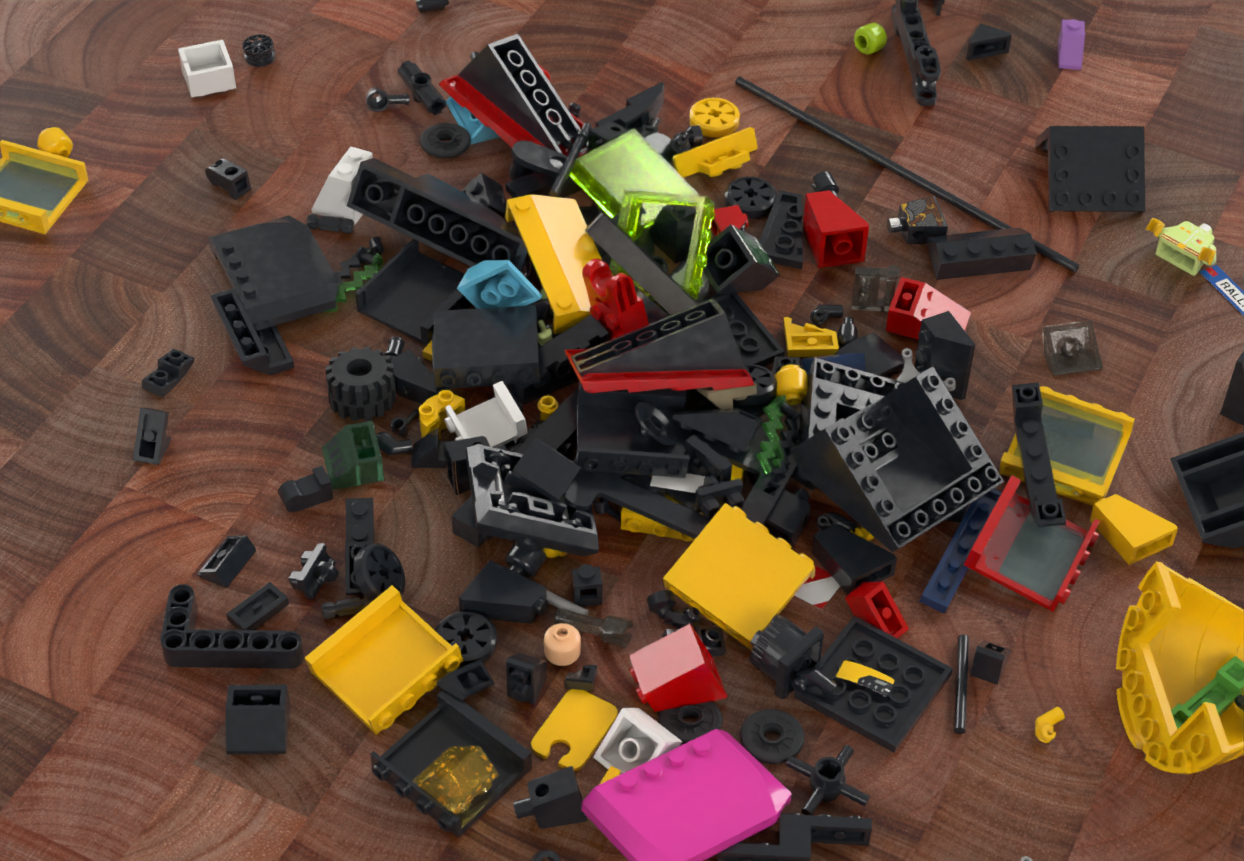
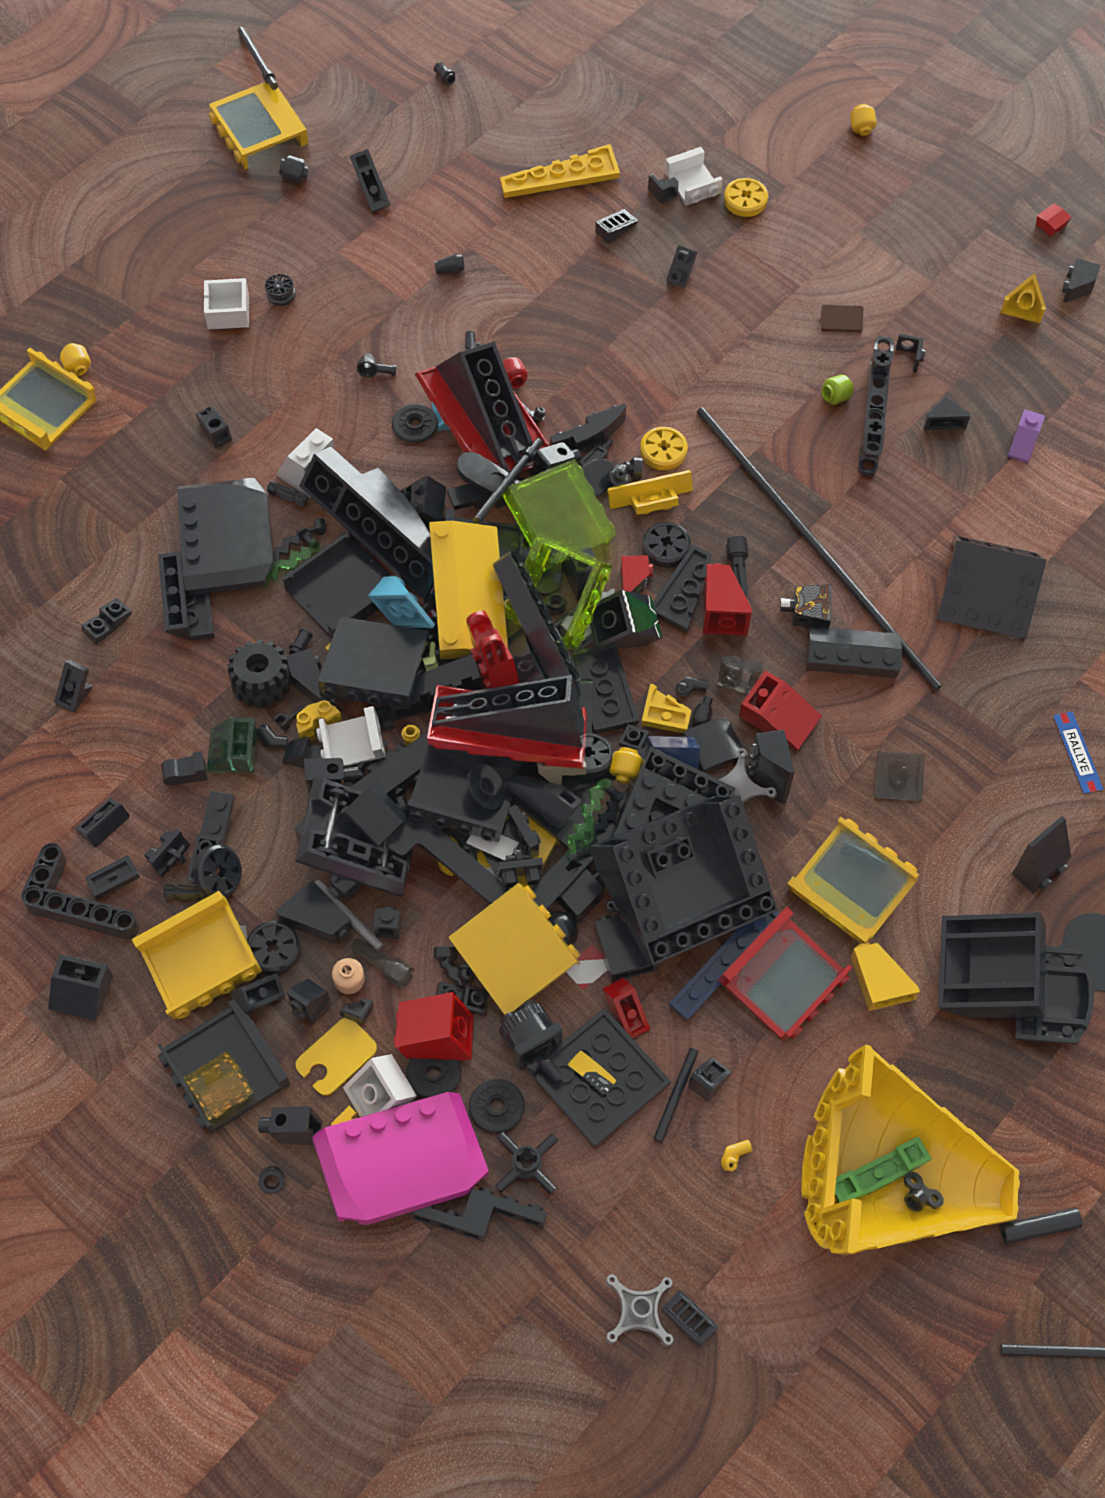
camera: 15 degrees right, 15 degrees up
(421, 87) = (409, 359): black piece -> none
(1034, 456) = (815, 894): black slope -> none
(1184, 244) = (1048, 687): yellowish green torso -> none

